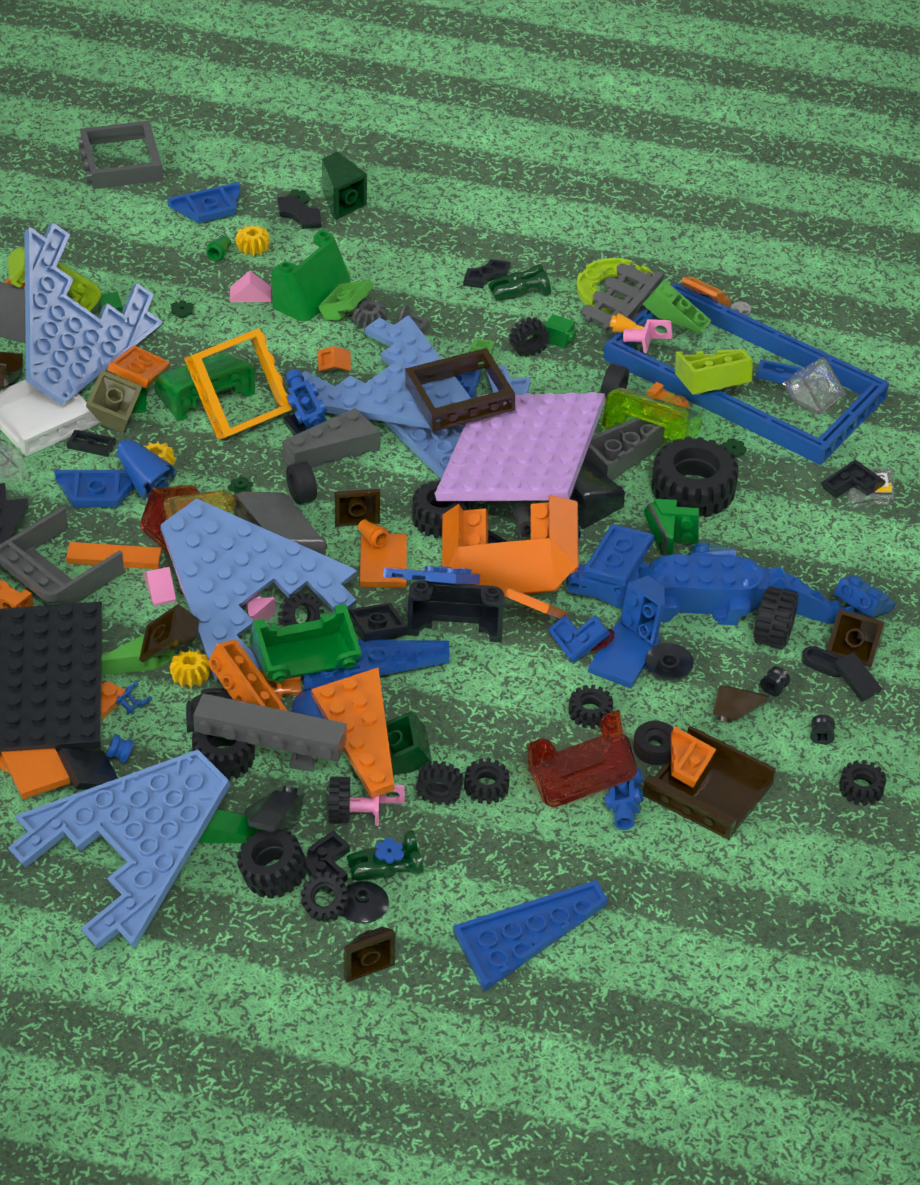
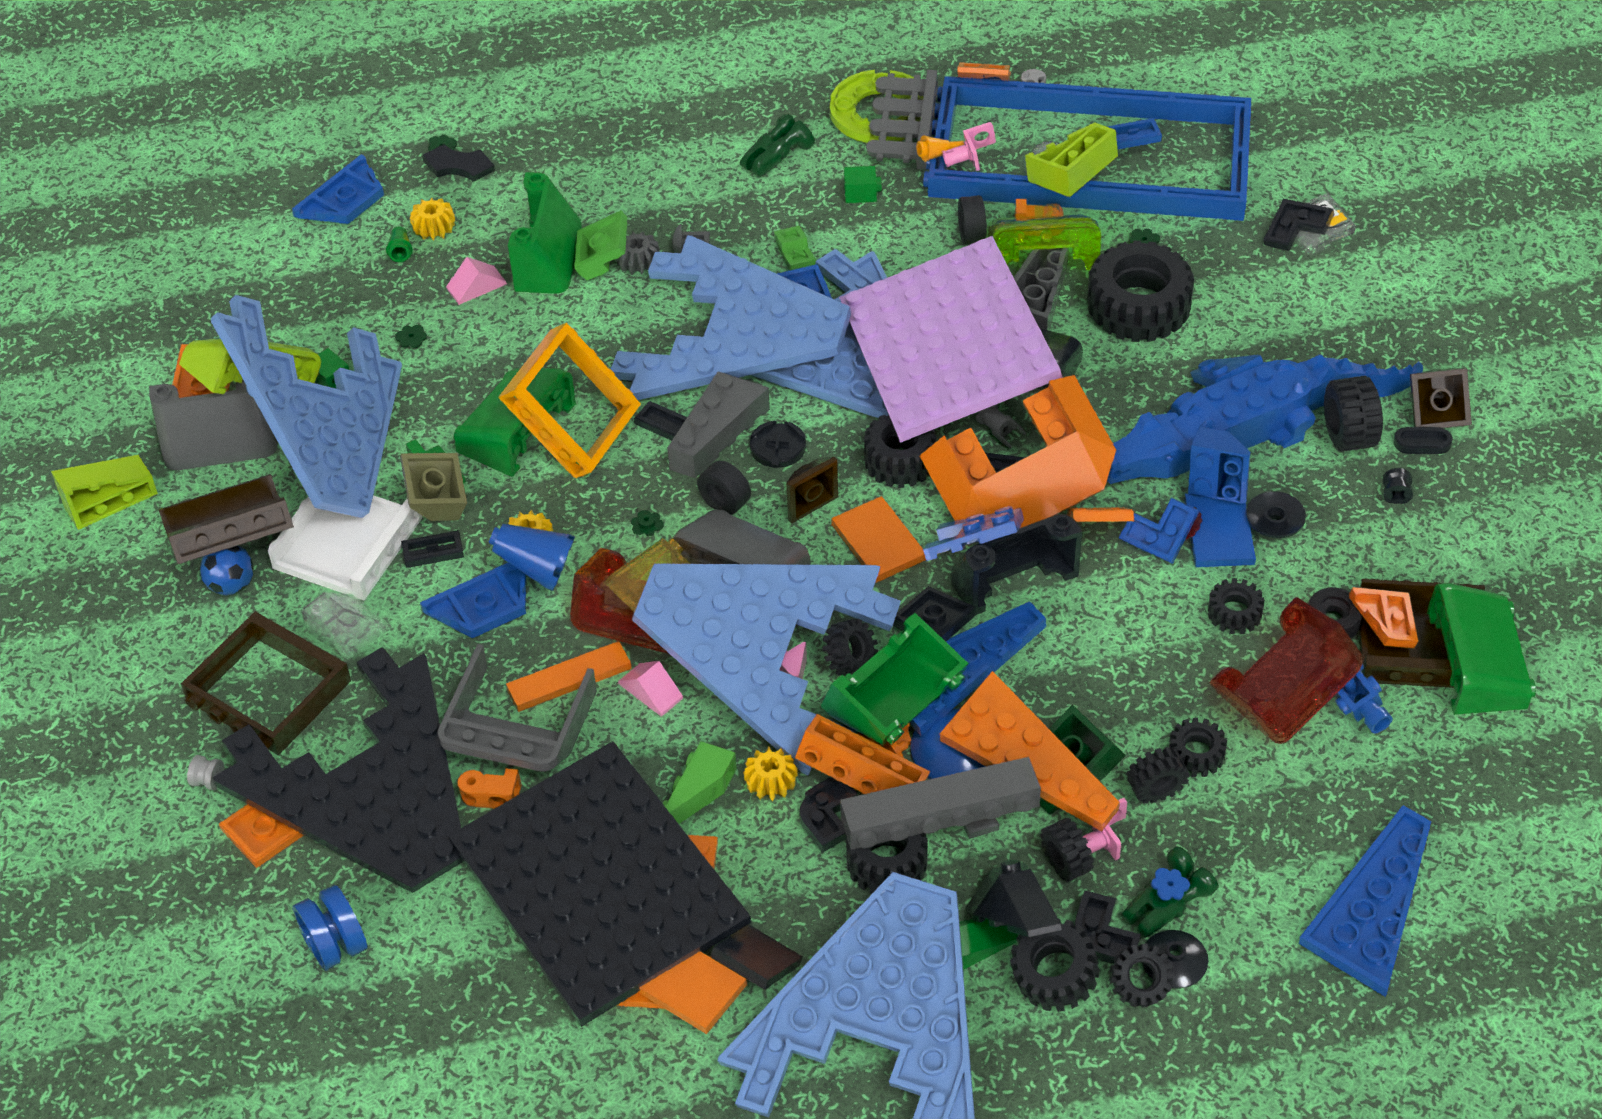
camera: 25 degrees left, 5 degrees up
(119, 748) = (769, 912): blue wheel -> none
(120, 175) = (244, 184): dark grey window -> none
(139, 366) = (425, 429): orange tile -> none
(140, 704) = (722, 838): blue piece -> none
(169, 632) = (726, 744): dark brown slope -> none
(304, 399) = (664, 387): blue brick -> none
(334, 358) = (639, 324): orange panel -> none
(343, 185) = (490, 109): dark green slope -> none
(366, 473) = (777, 444): none -> black tile
(369, 953) = (1240, 1013): dark brown slope -> none
(375, 535) = (852, 512): orange cone -> none
(466, 410) = (856, 324): dark brown window -> none
(482, 275) = (721, 154): black tile -> none
(524, 330) = (839, 204): black tyre -> none
(618, 555) = (1146, 417): blue tile -> none
(670, 305) = (972, 105): bright green slope -> none
(672, 524) = (1161, 357): green piece -> none
(735, 807) = (1481, 649): none -> green windscreen
(736, 702) = (1381, 528): dark brown slope -> none
(815, 386) = (1185, 134): clear slope -> none
(822, 729) = (1486, 518): black wheel -> none
(857, 677) = (1472, 442): black tile -> none
(862, 772) = (1572, 546): black tyre -> none
(864, 596) = (1413, 349): blue plate -> none

